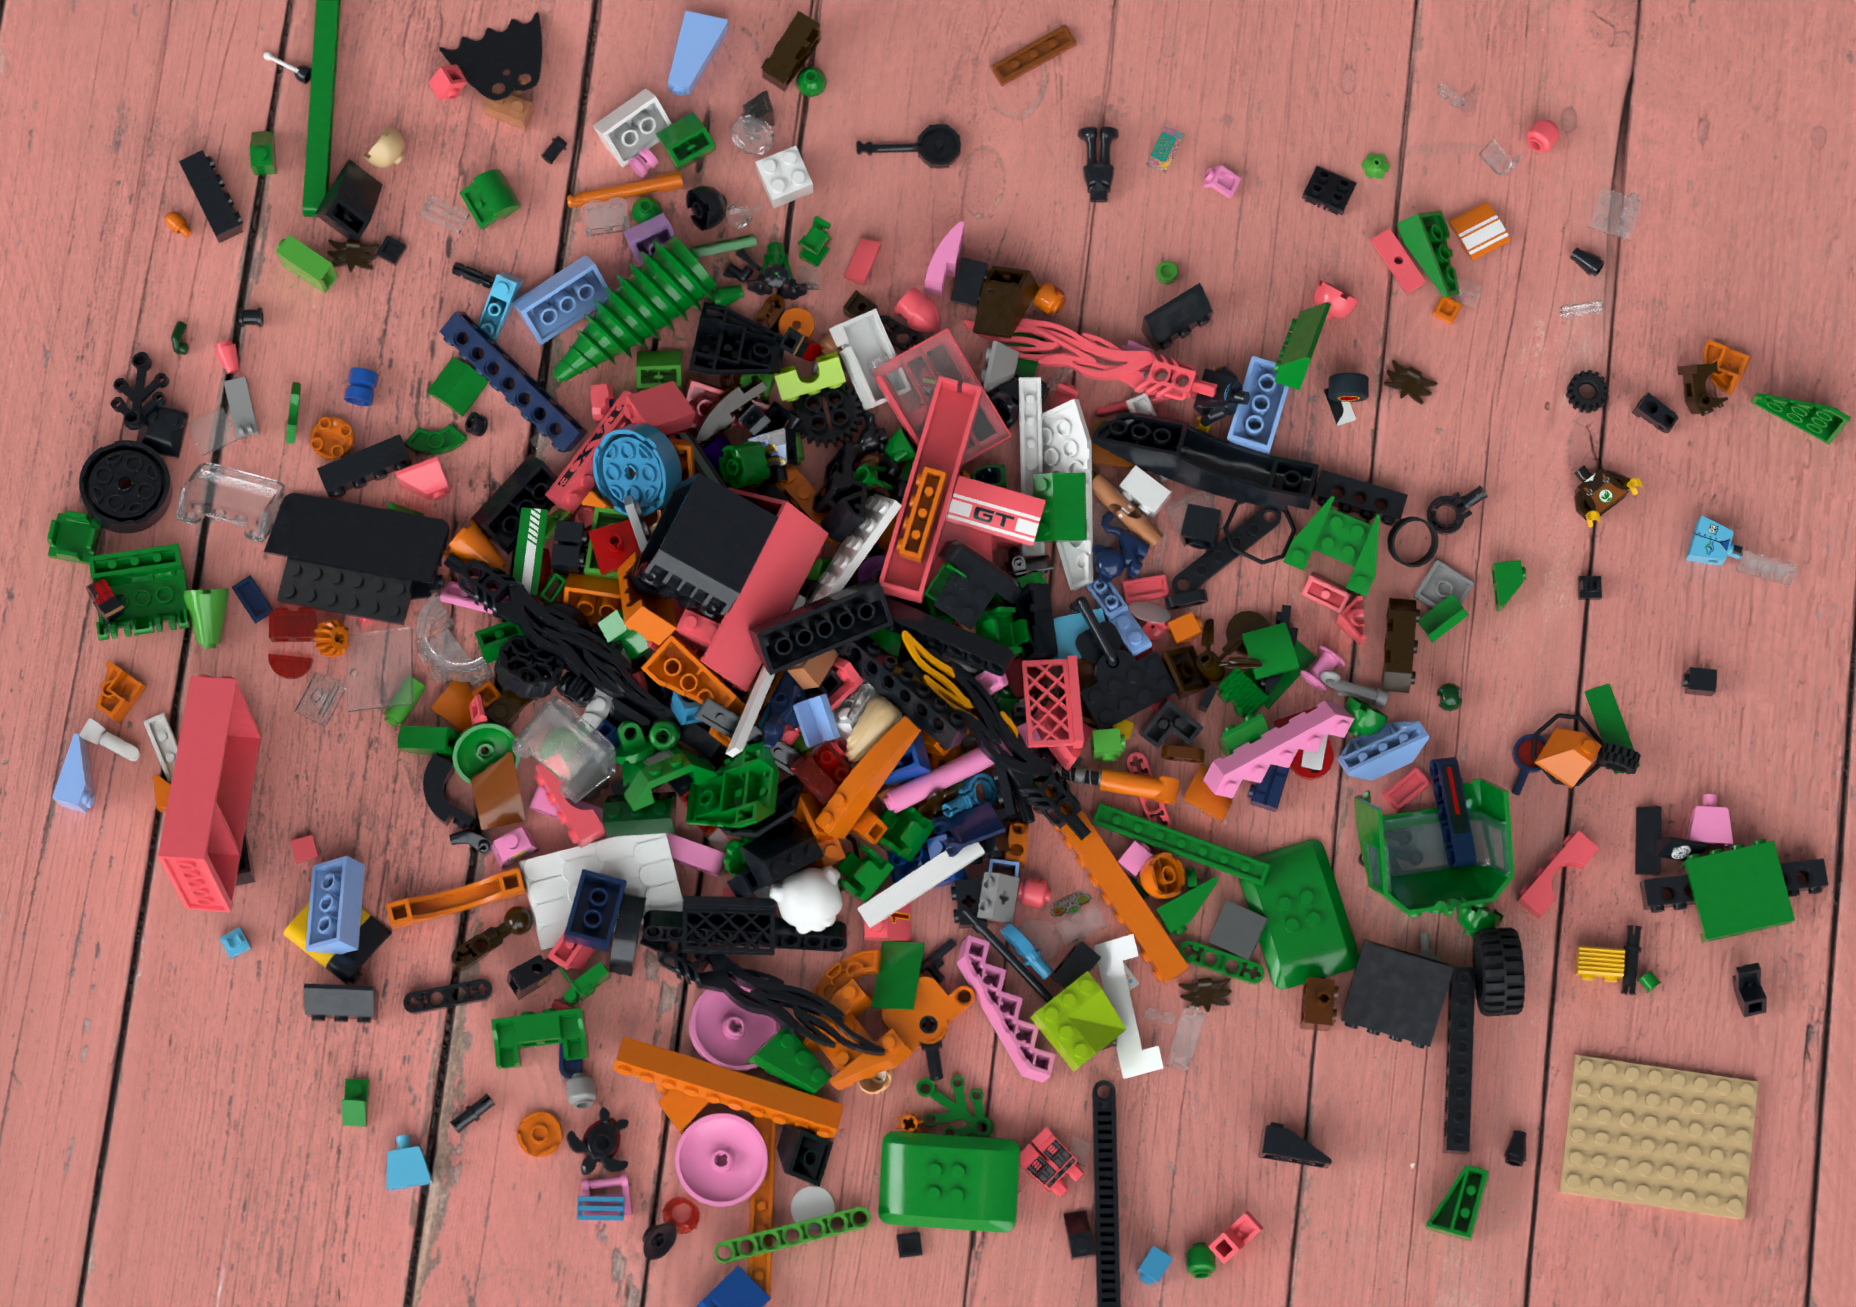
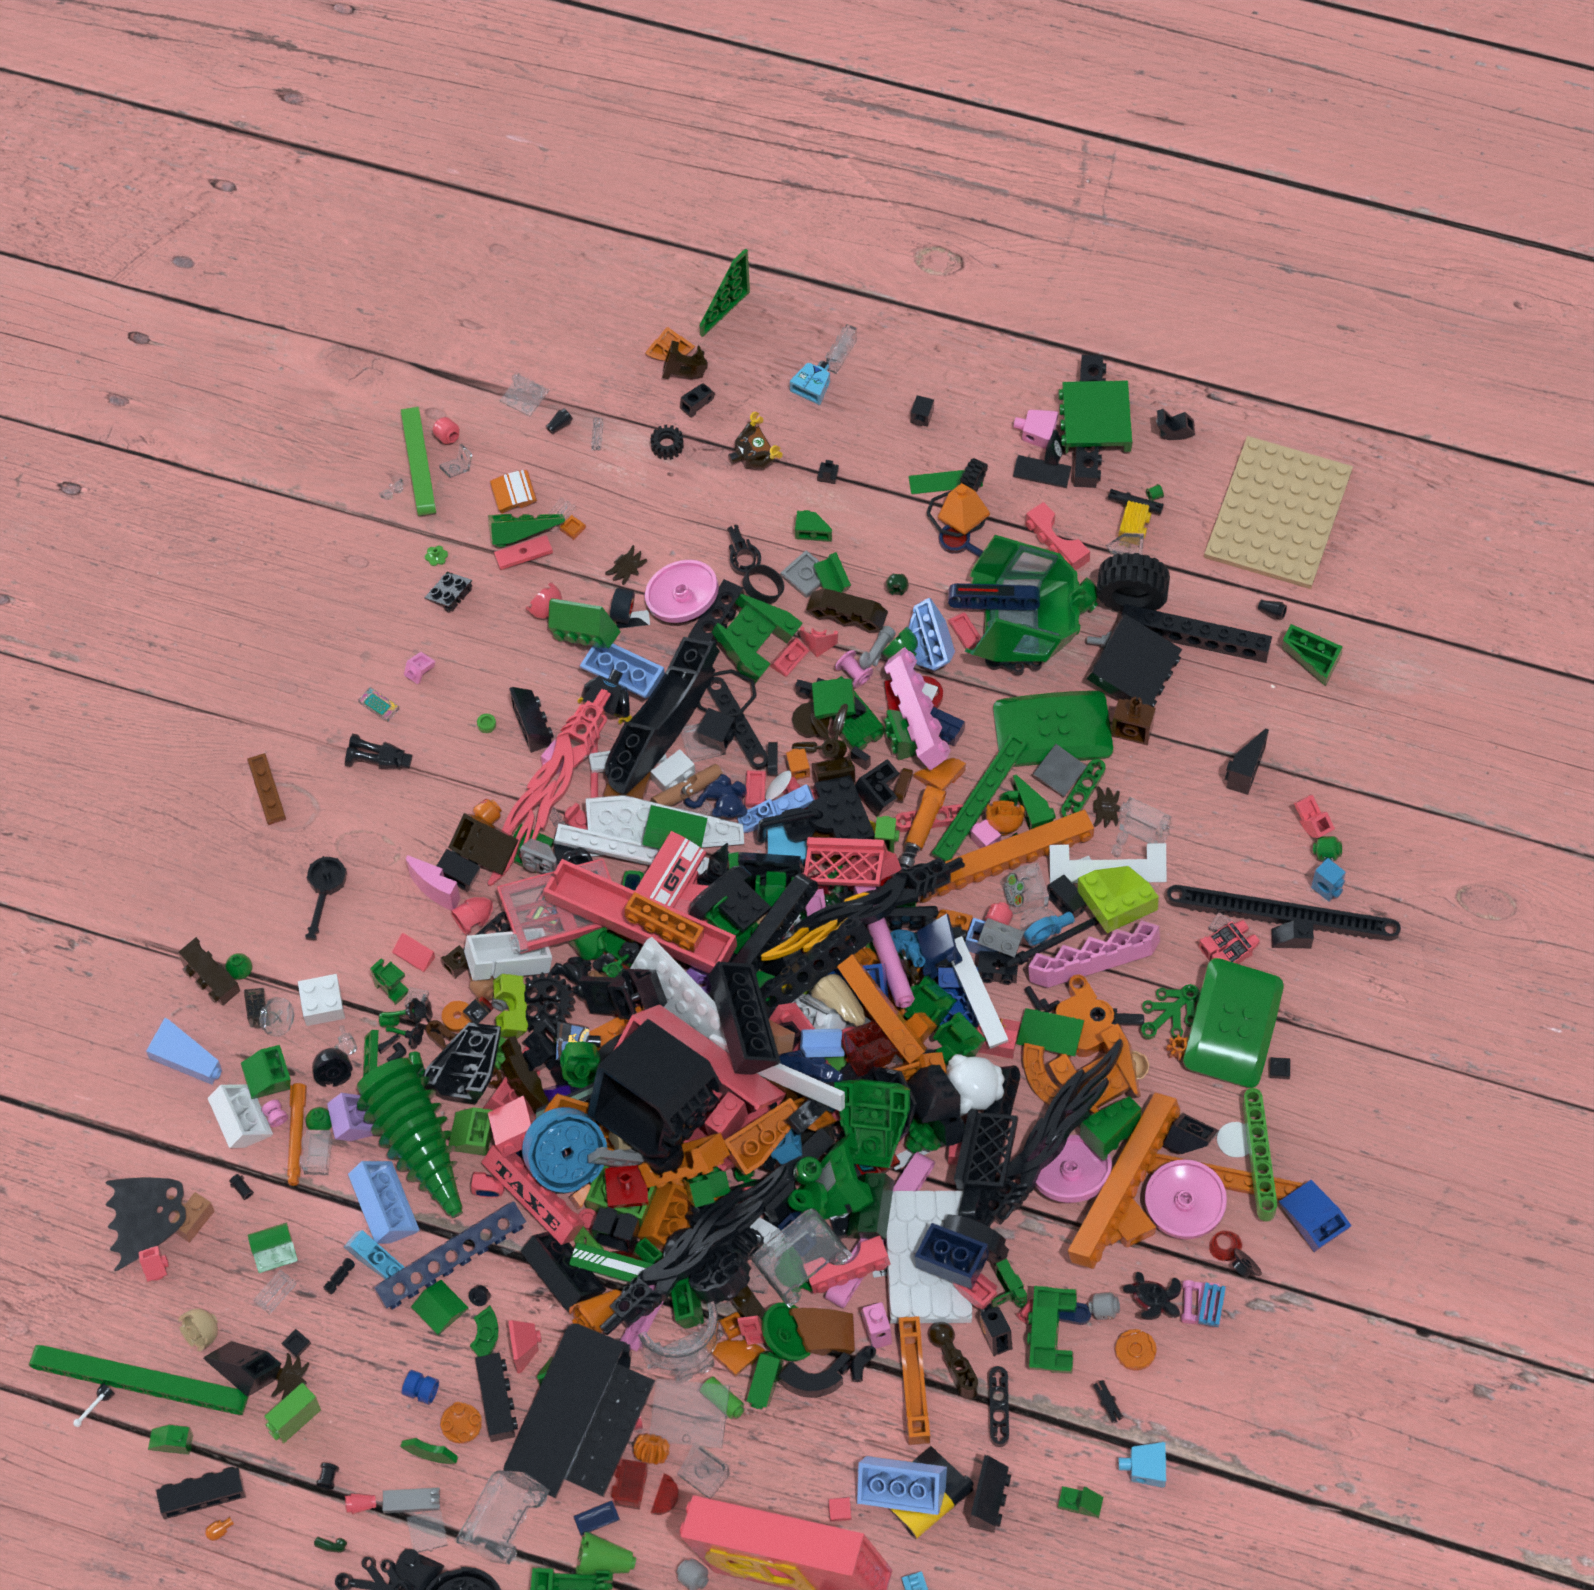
camera: 75 degrees left, 15 degrees down
(1381, 450) = (681, 591): none -> bright pink dish
(1495, 114) = (418, 461): none -> bright green beam
(1556, 963) = (1127, 543): none -> clear slope

